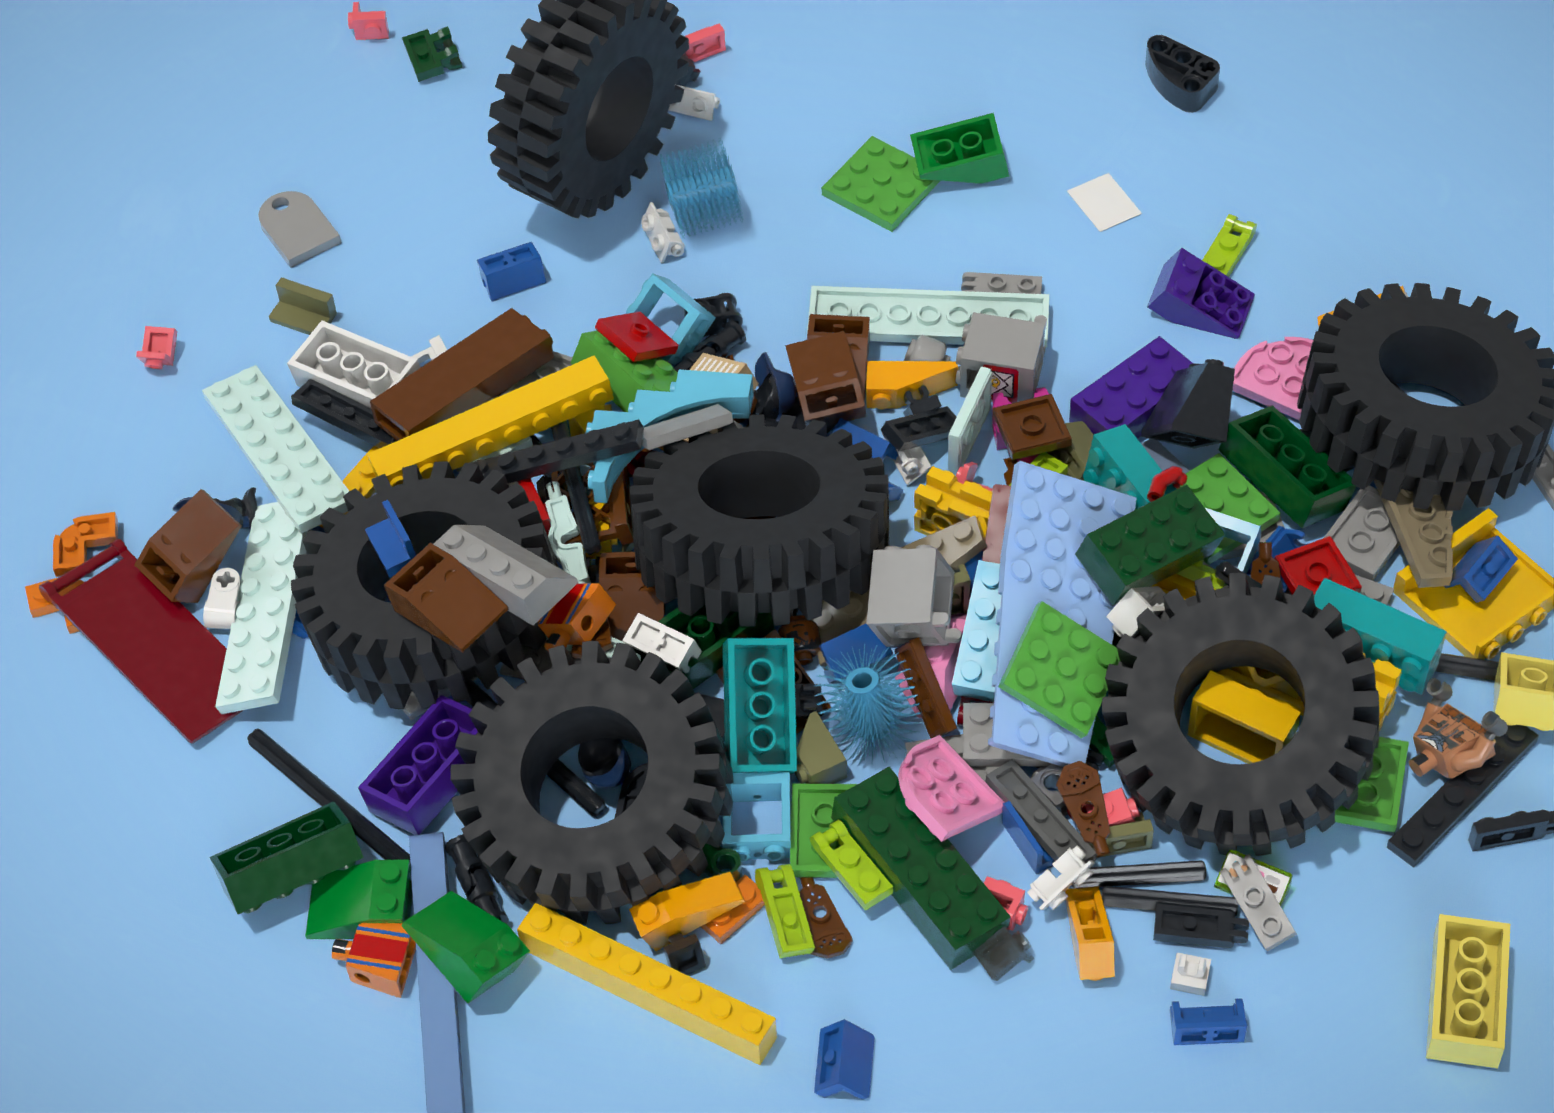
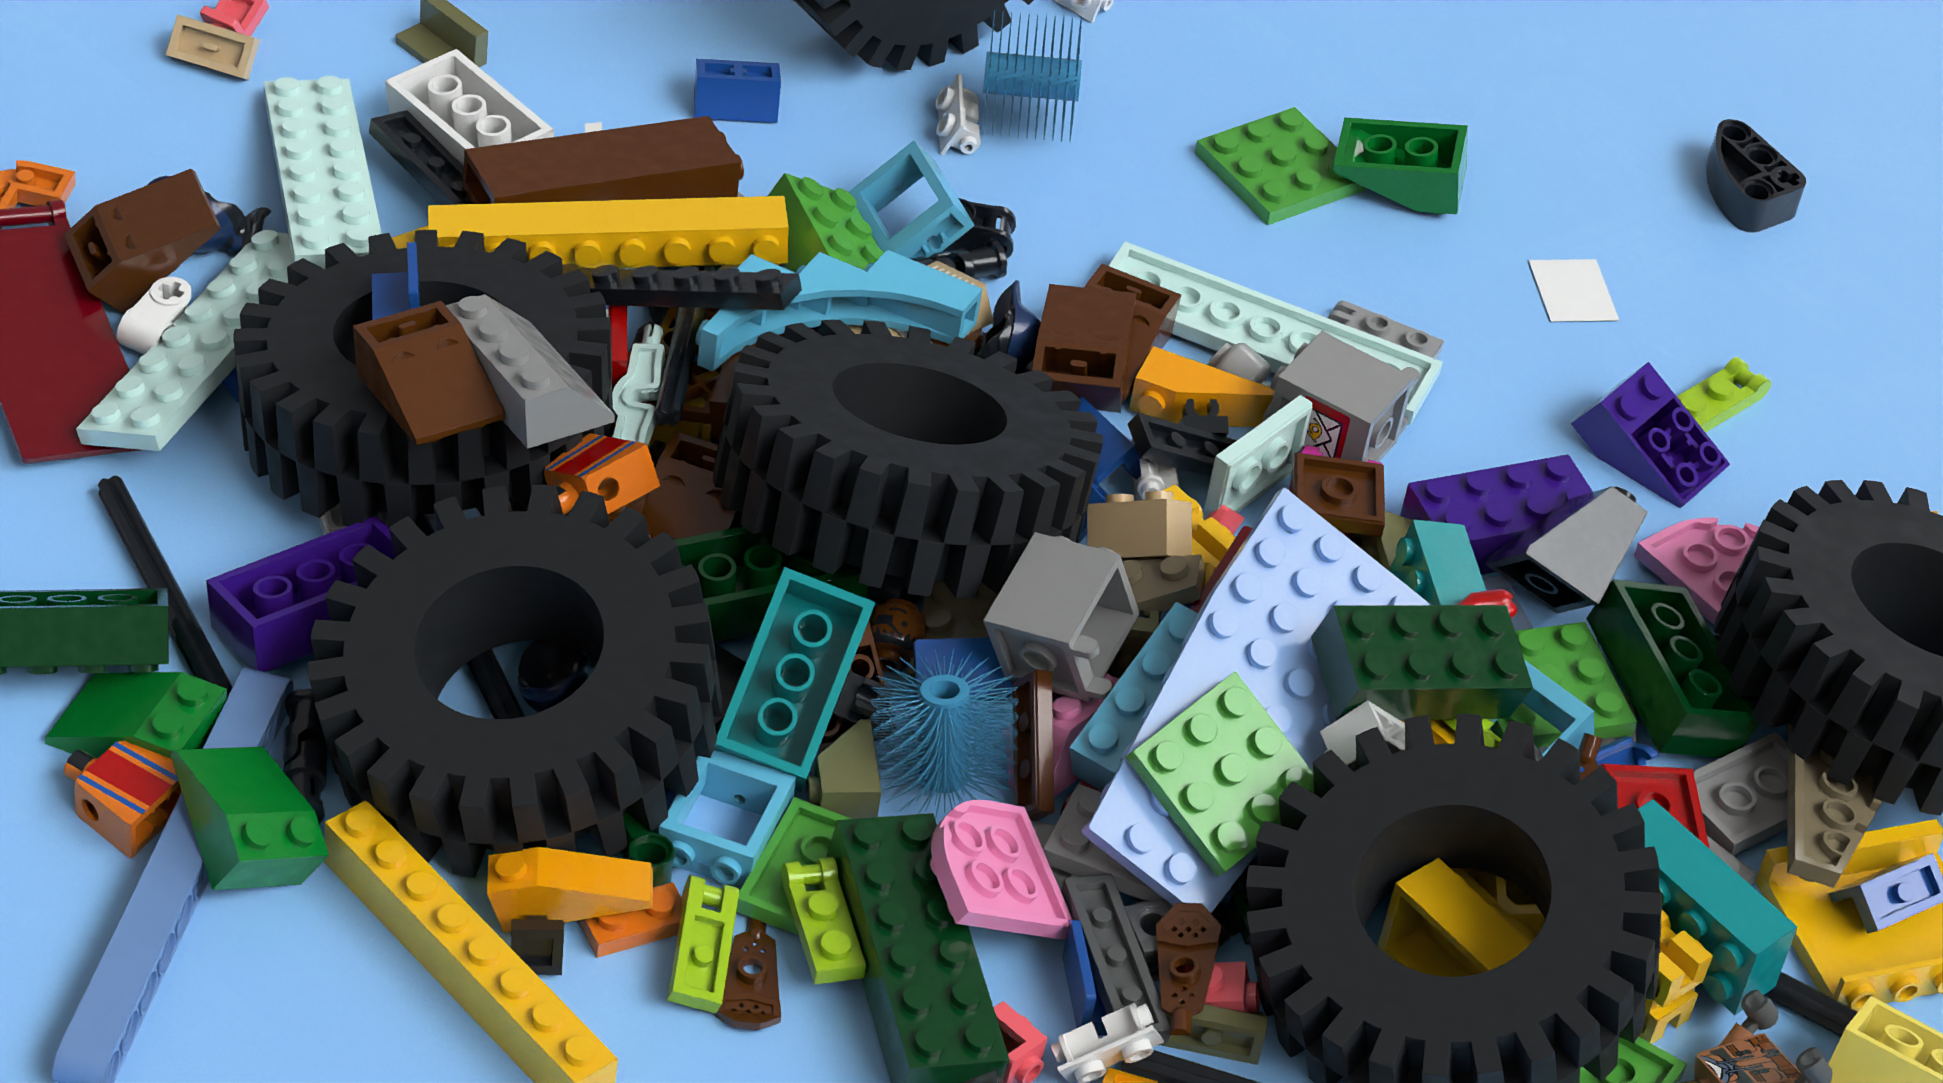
camera: 10 degrees right, 10 degrees down
(155, 377) = (212, 47): none -> tan plate
(636, 336) = (856, 205): red plate -> none
(663, 641) = (704, 549): white hinge -> none
(686, 426) = (859, 313): light grey tile -> none
(926, 510) = (1141, 527): none -> tan brick

